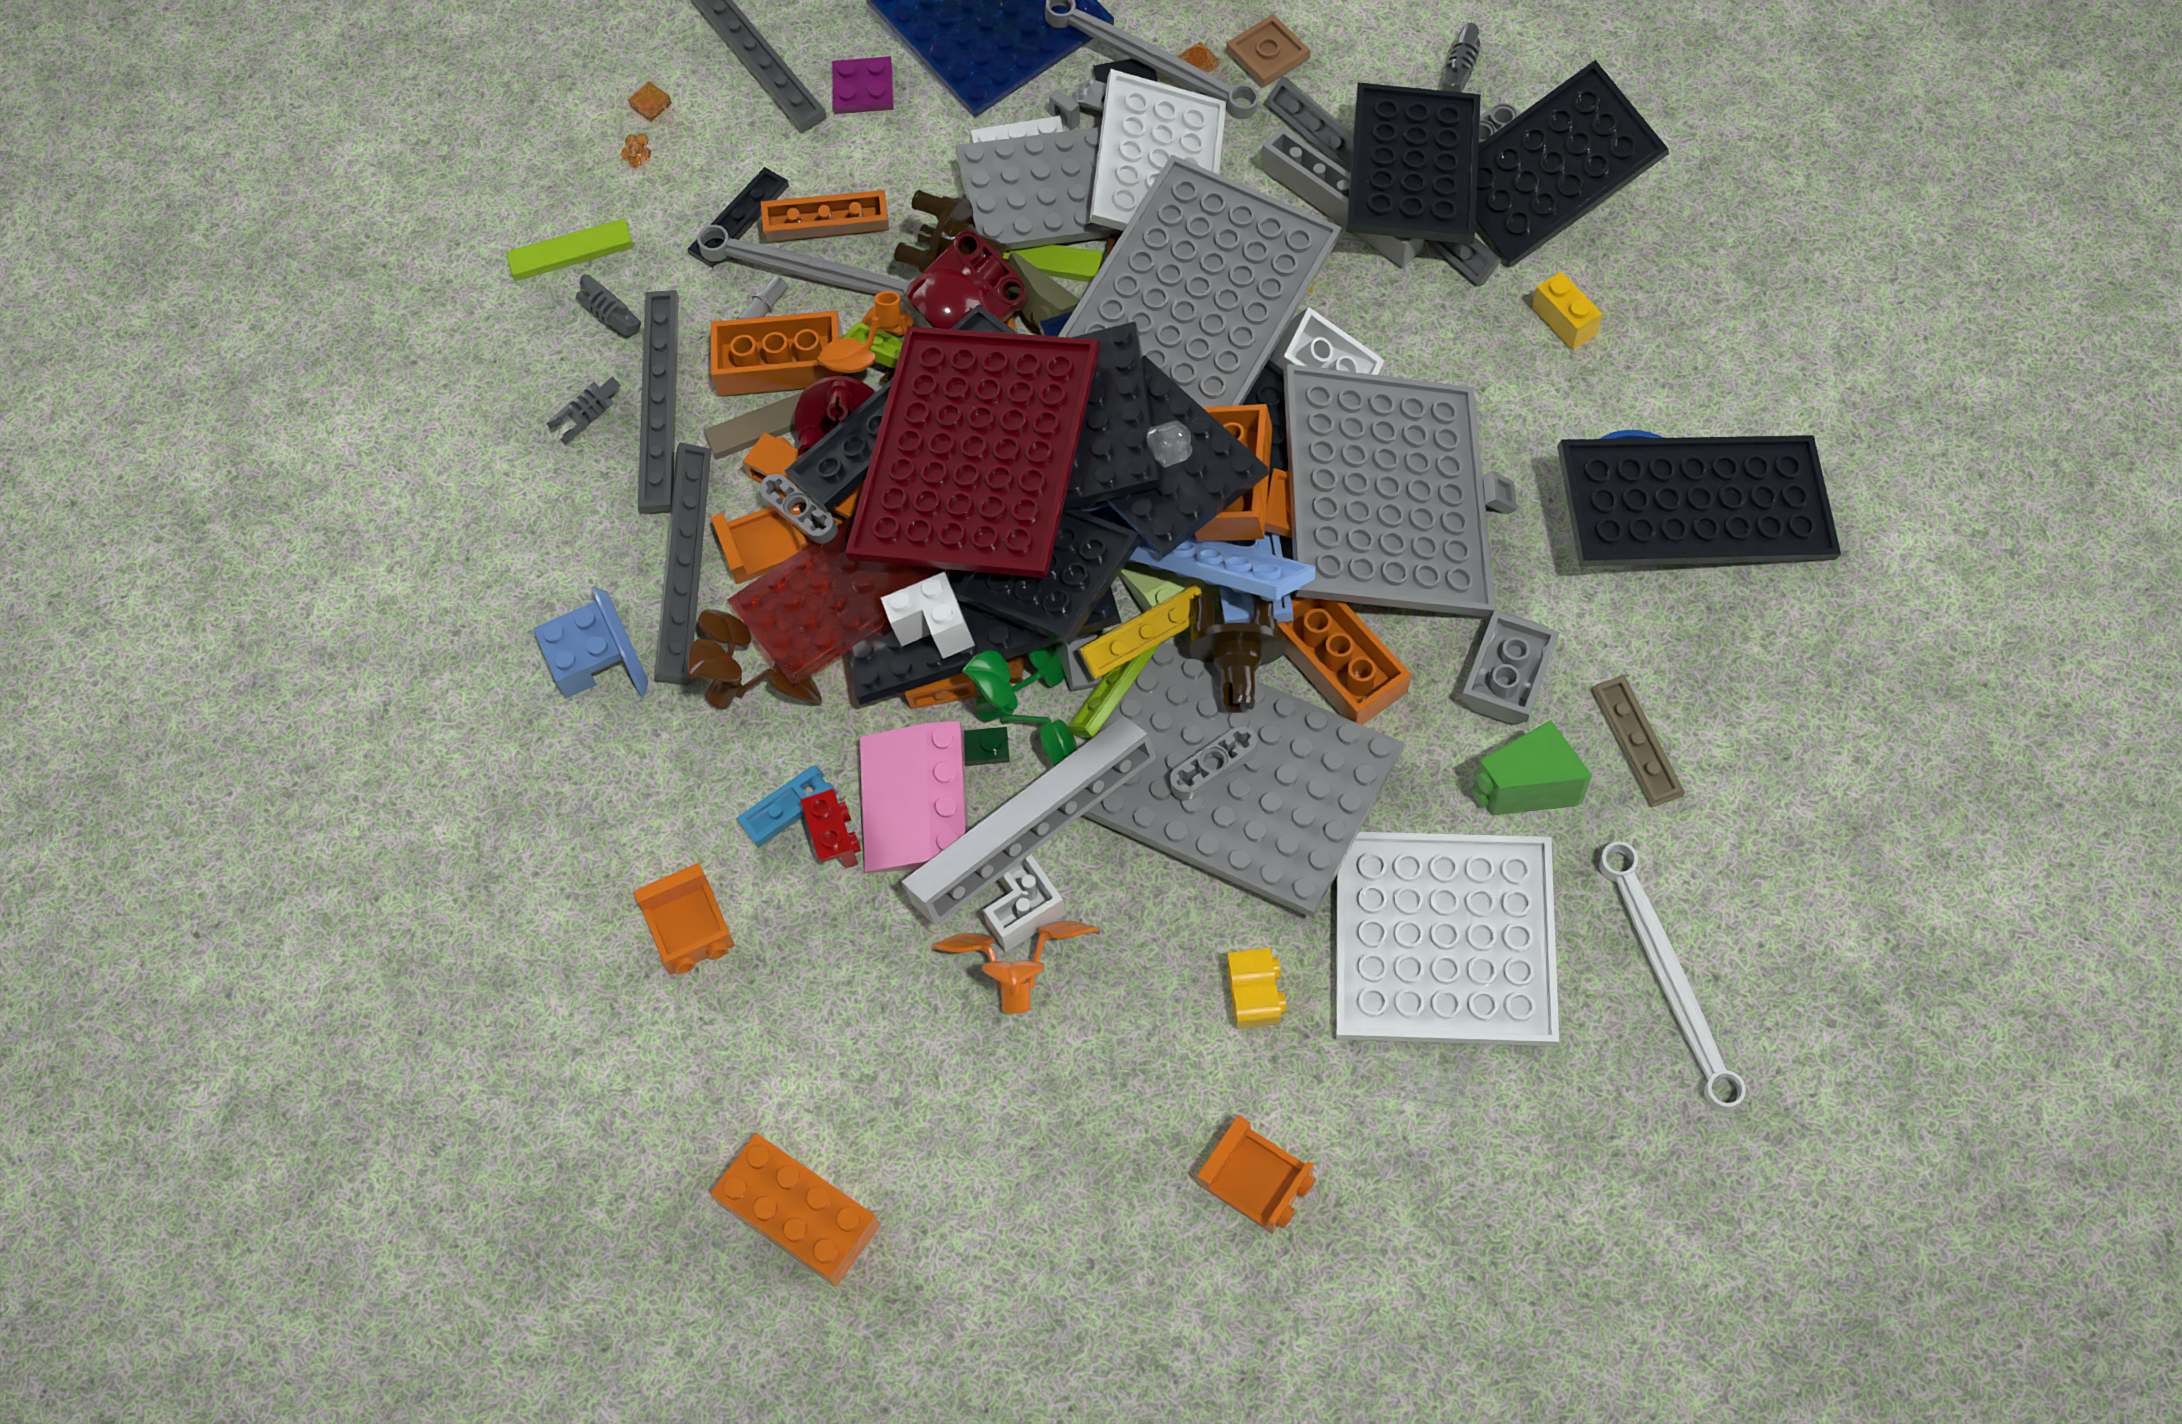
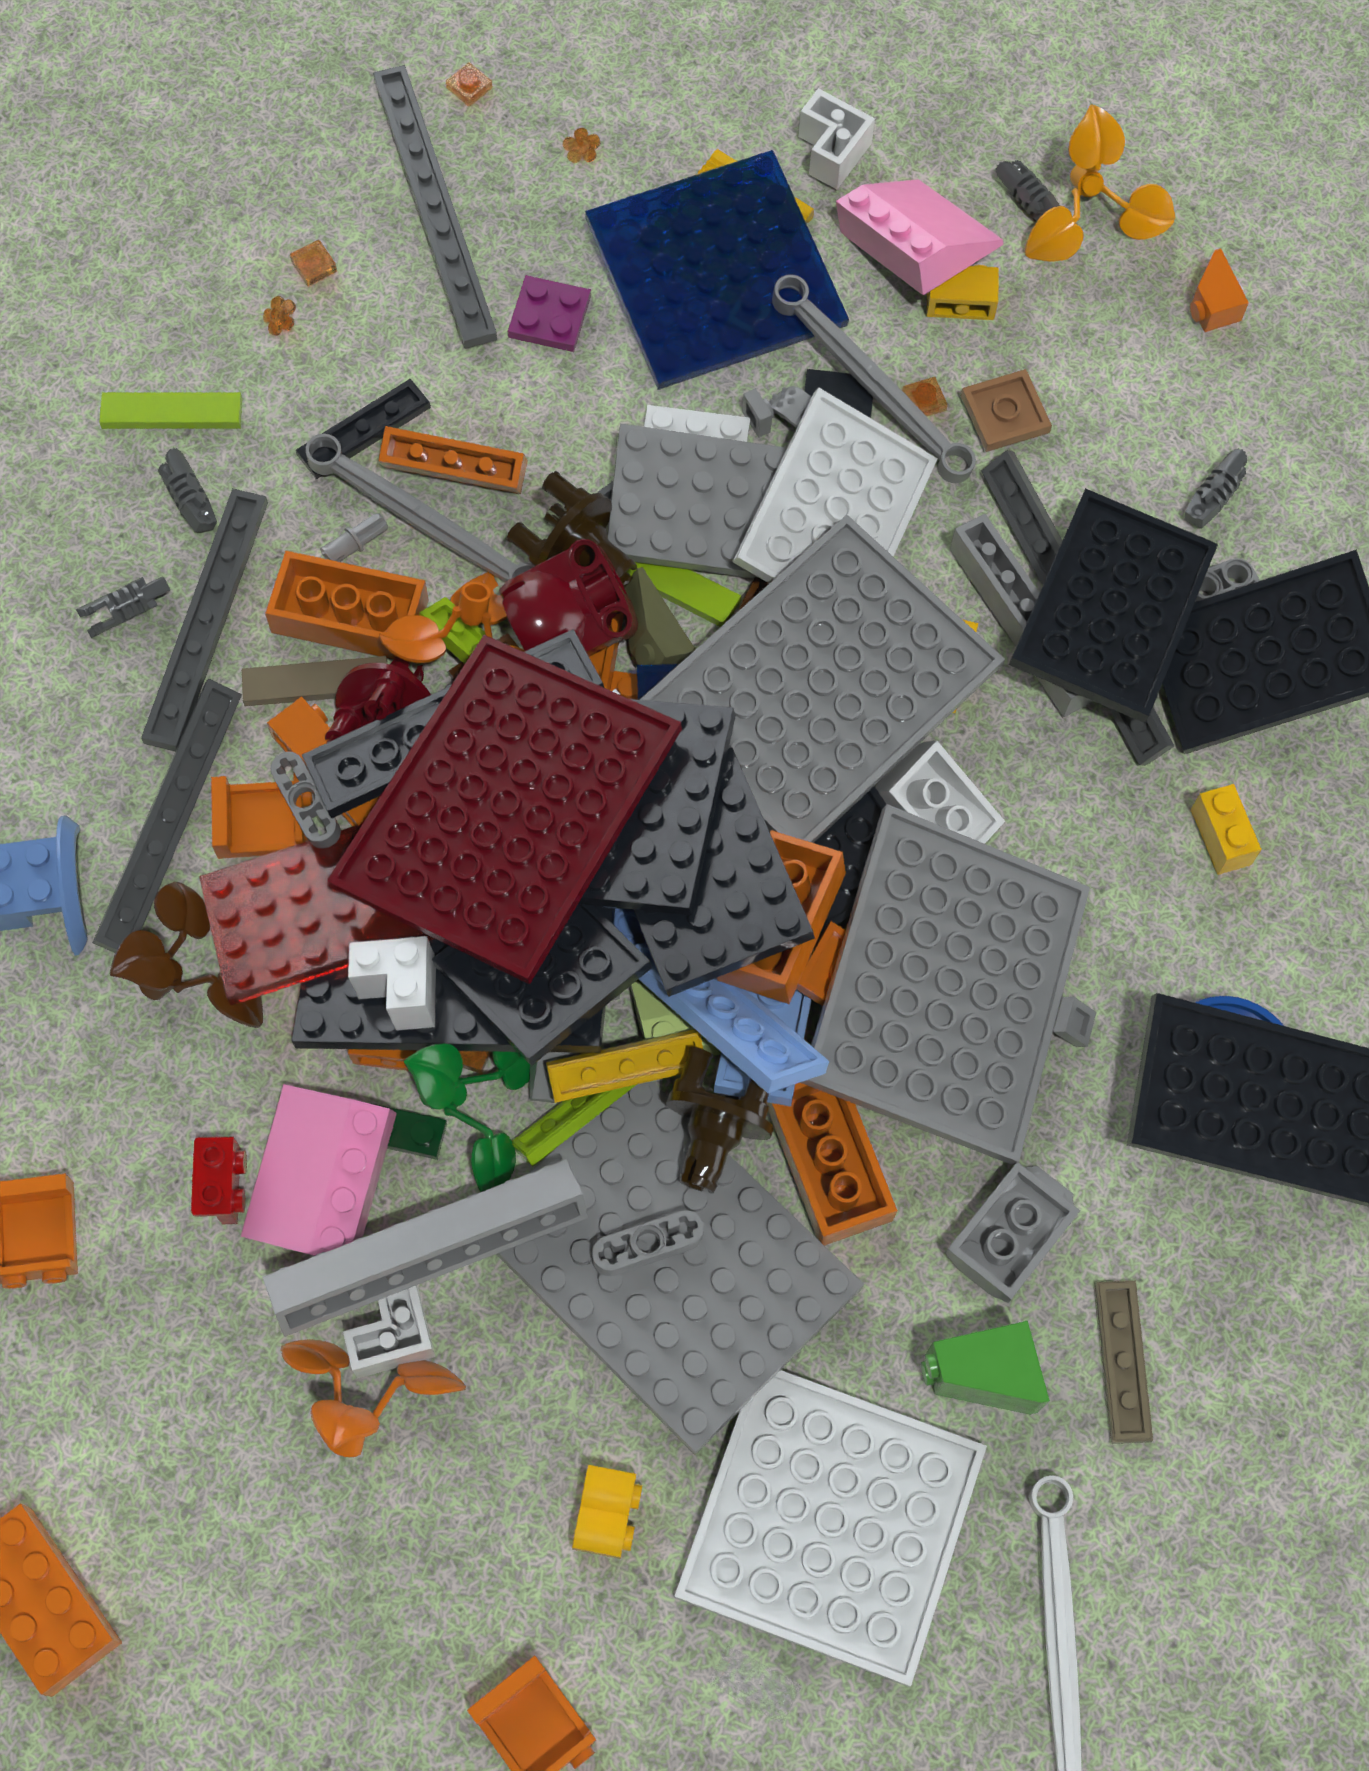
camera: 10 degrees right, 5 degrees up
(781, 807) = (176, 1134): dark azure plate -> none
(1170, 443) = (716, 870): clear plate -> none

